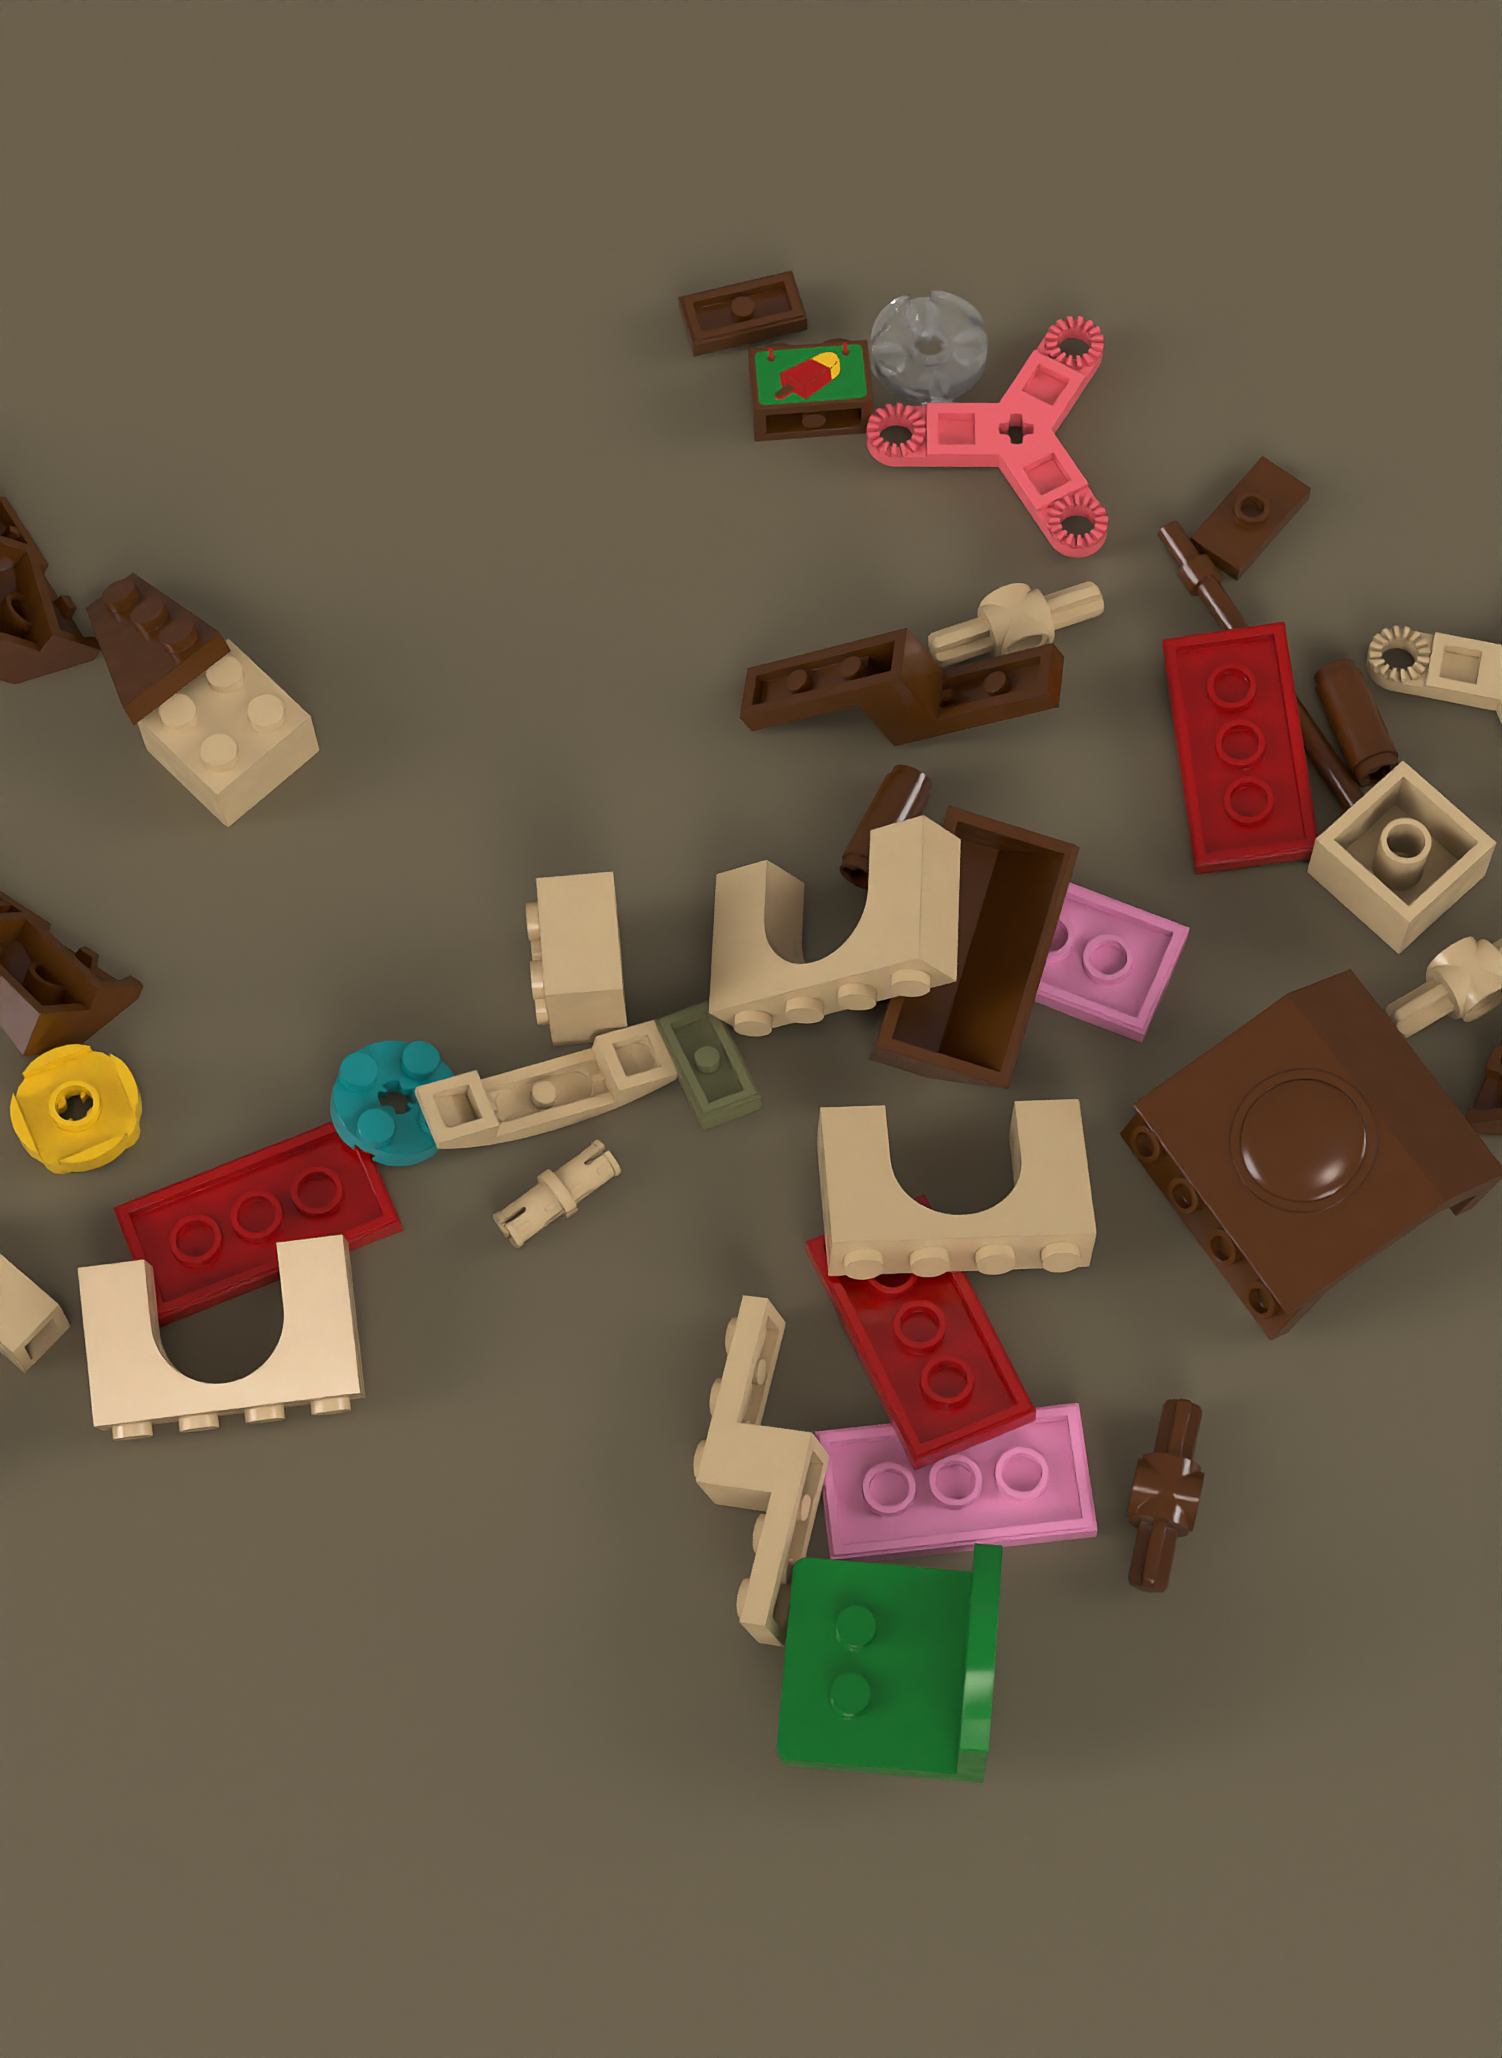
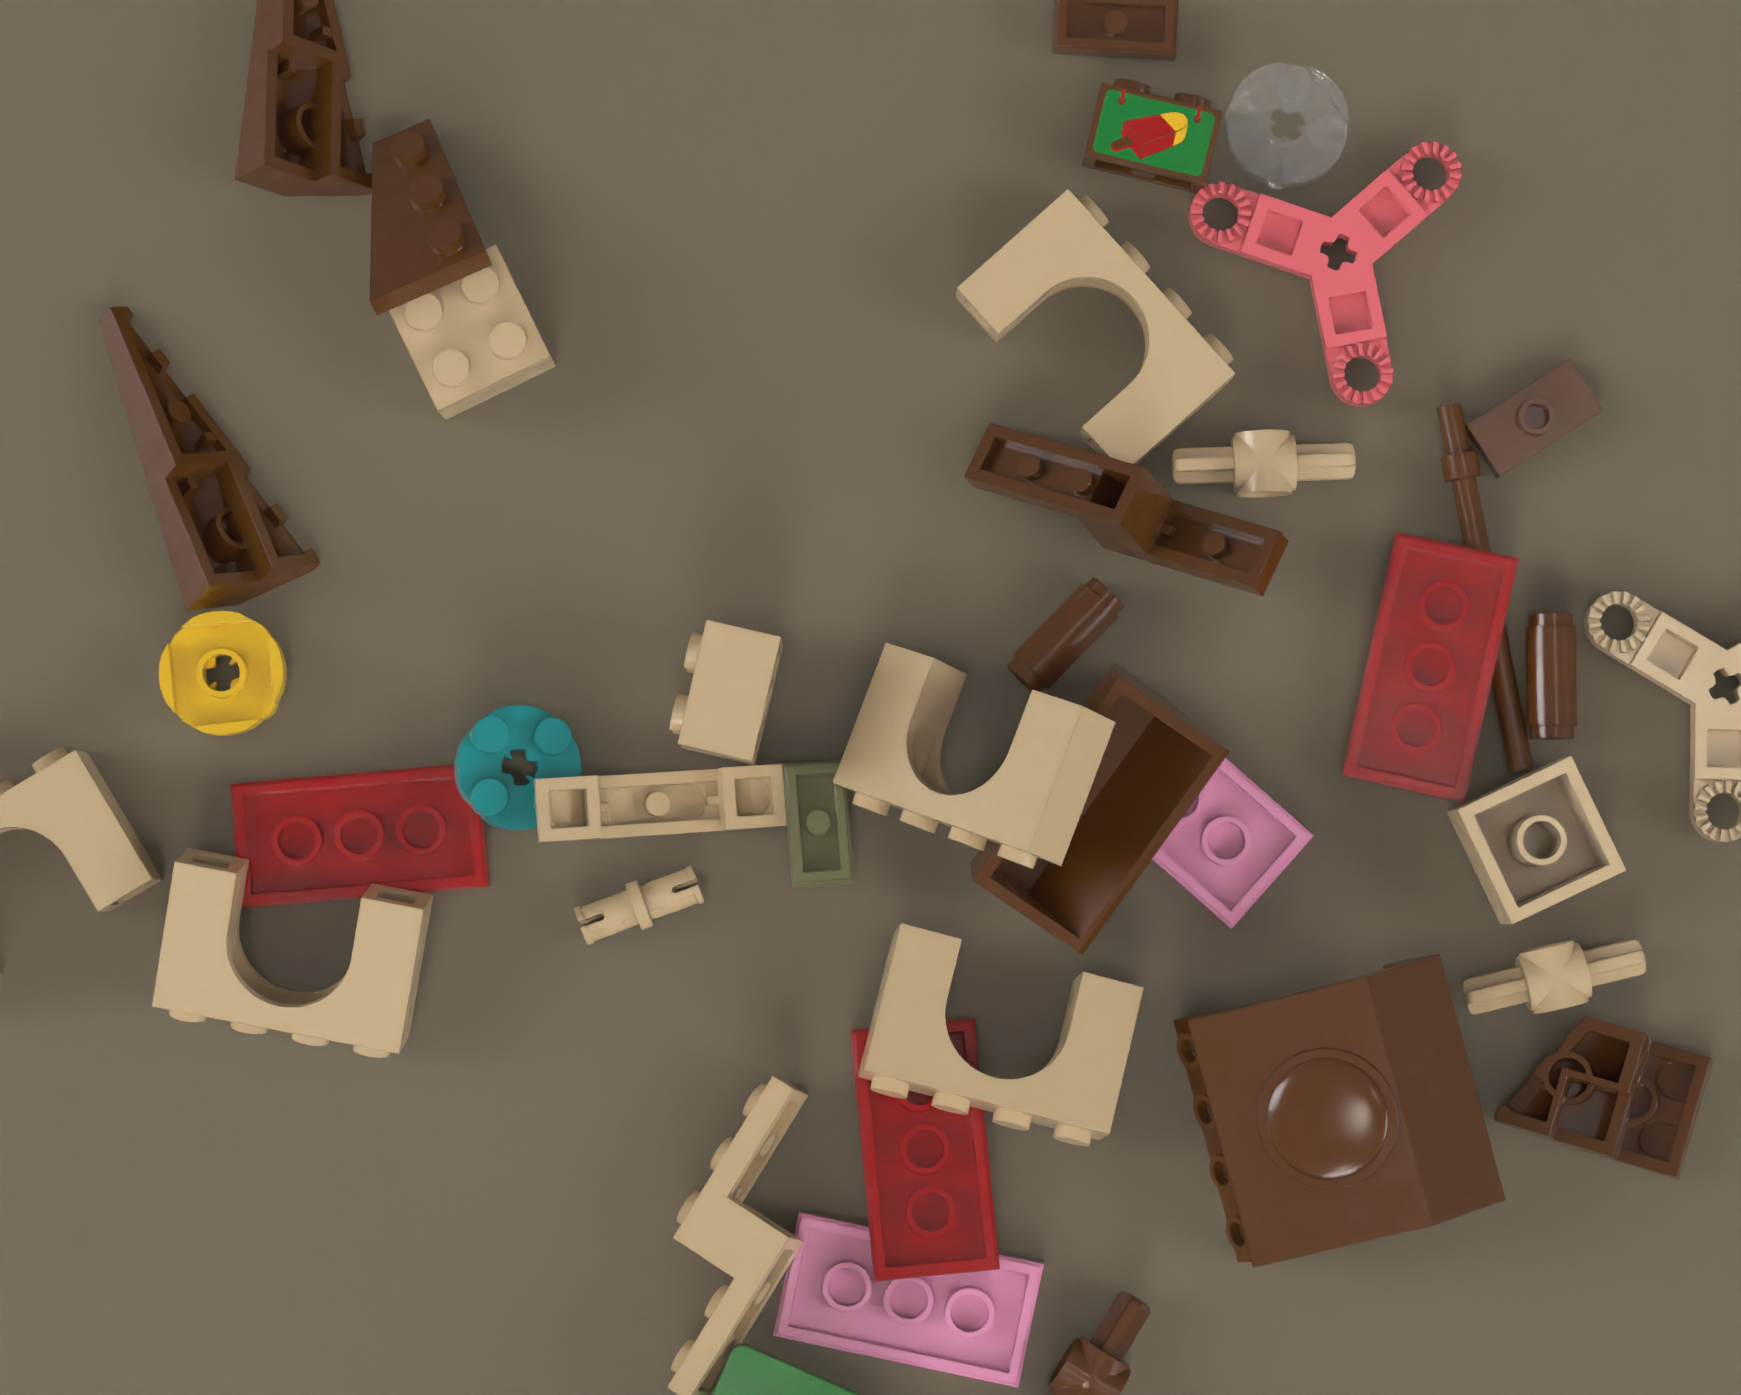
camera: 15 degrees right, 20 degrees up
(774, 500) = (1070, 250): none -> tan arch

